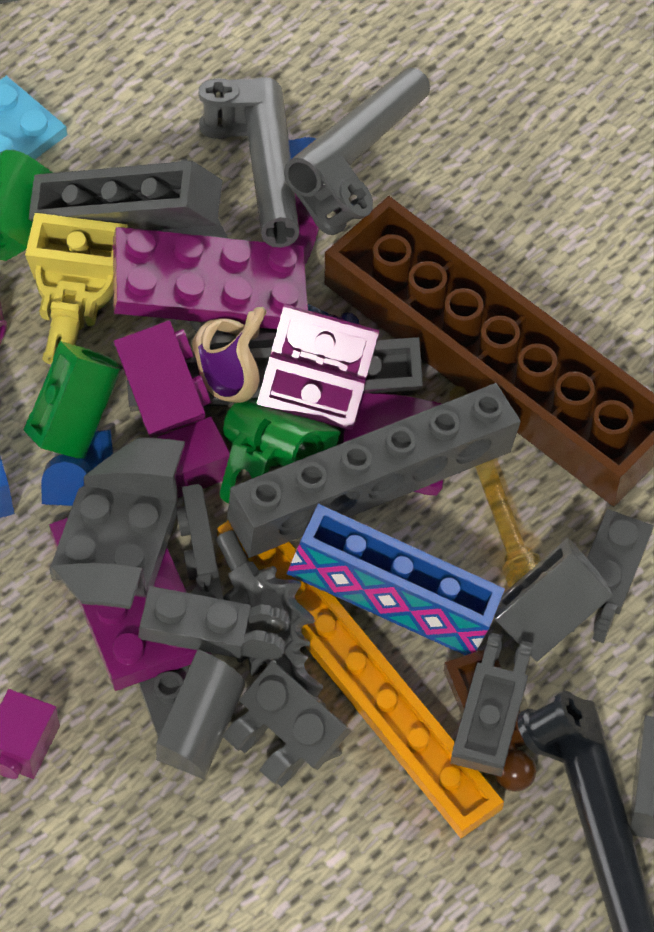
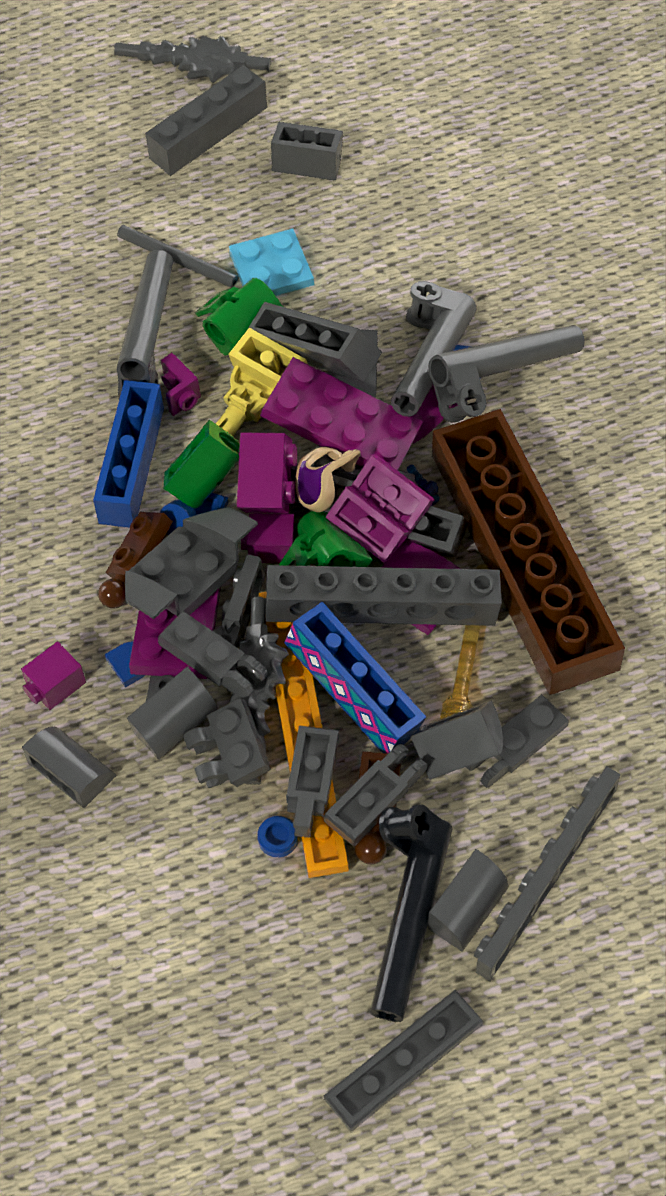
camera: 30 degrees right, 0 degrees up
(35, 538) = (144, 535): none -> reddish brown plate
(94, 682) = (119, 661): none -> blue tile
(98, 836) = (67, 765): none -> dark grey brick
(398, 806) = (277, 836): none -> blue tile
(408, 716) = (311, 776): none -> dark grey hinge

